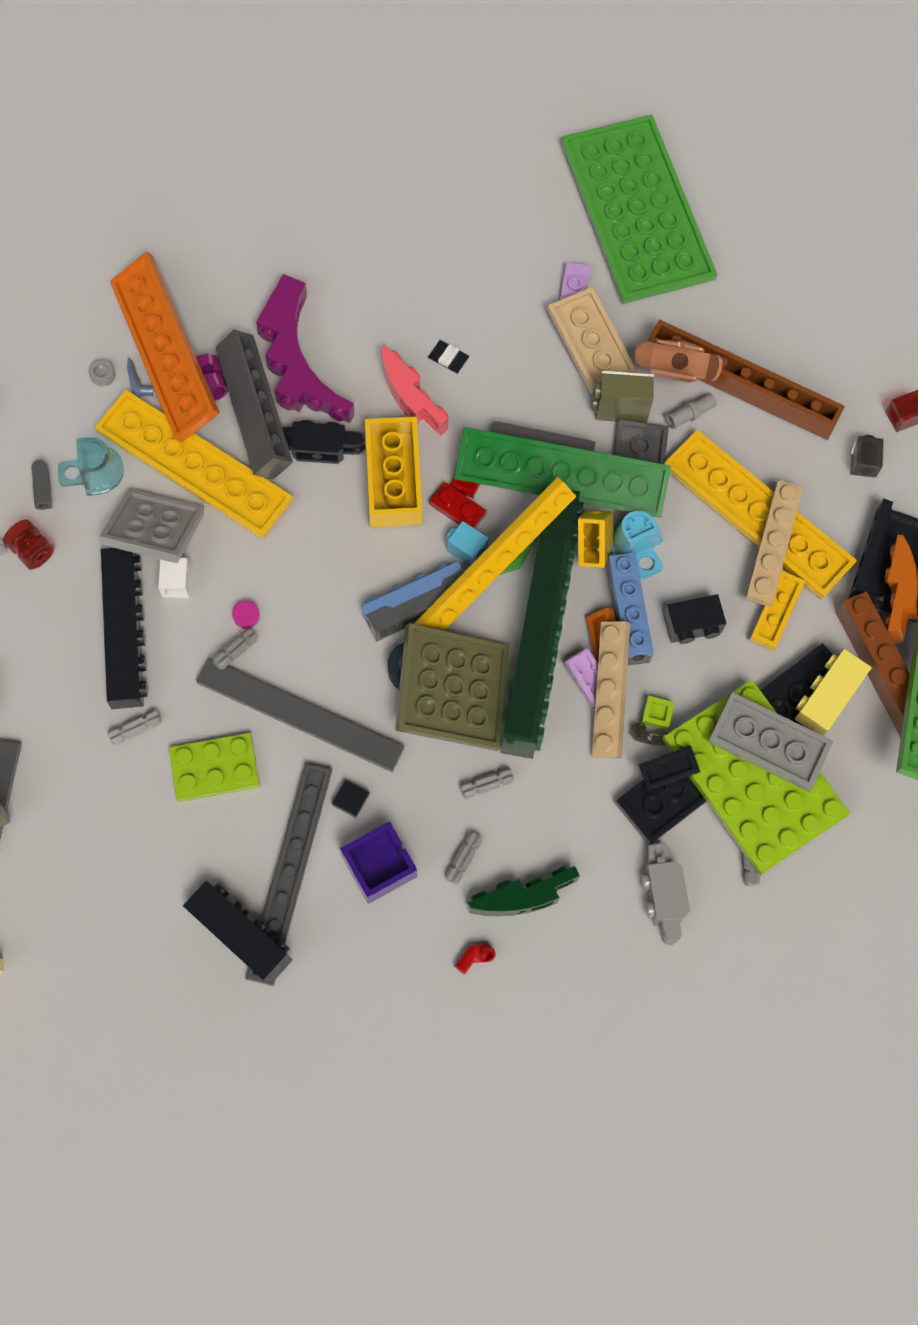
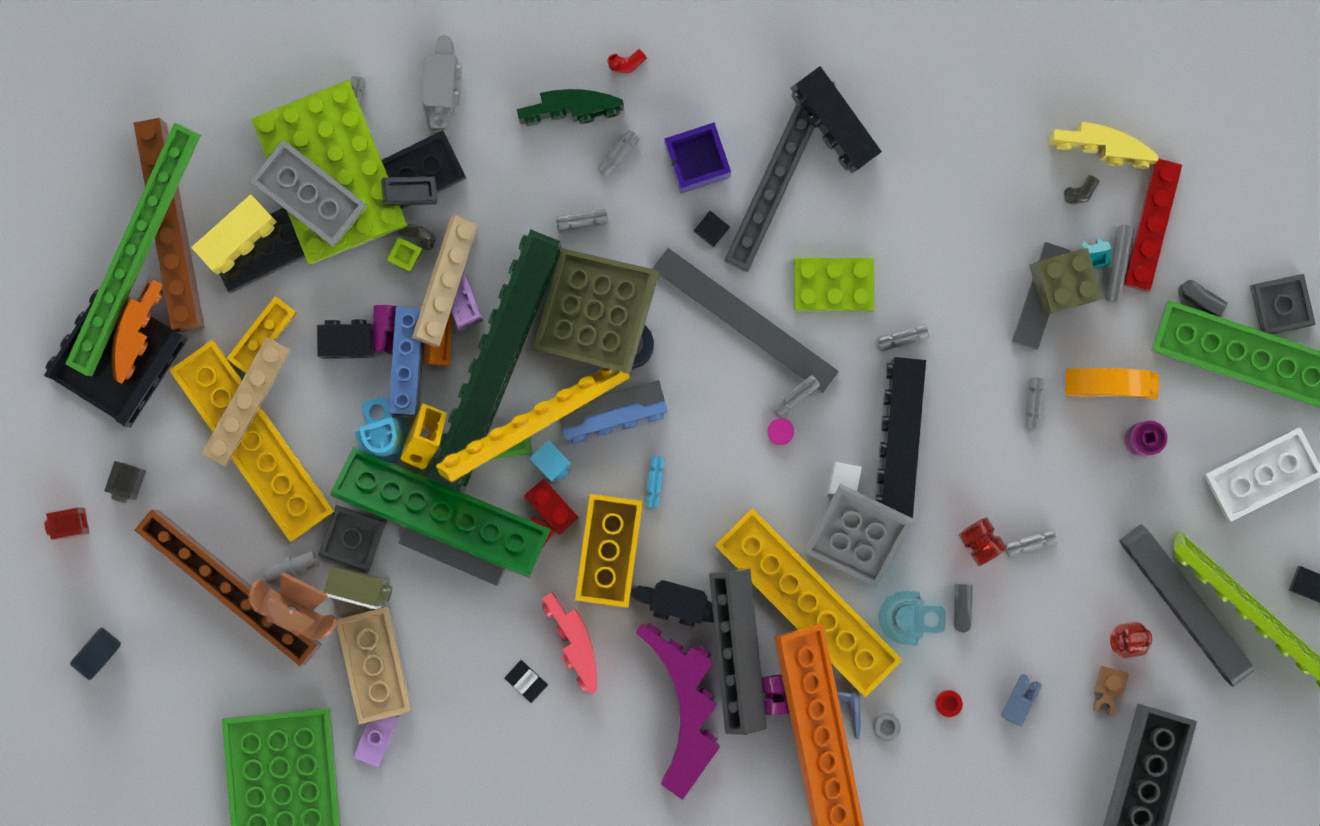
camera: 165 degrees left, 15 degrees up
(45, 402) = (948, 703): none -> red tile
(362, 546) = (654, 482): none -> medium azure axle
(661, 639) = (383, 328): none -> magenta hinge
(846, 305) = (95, 653): none -> black wheel

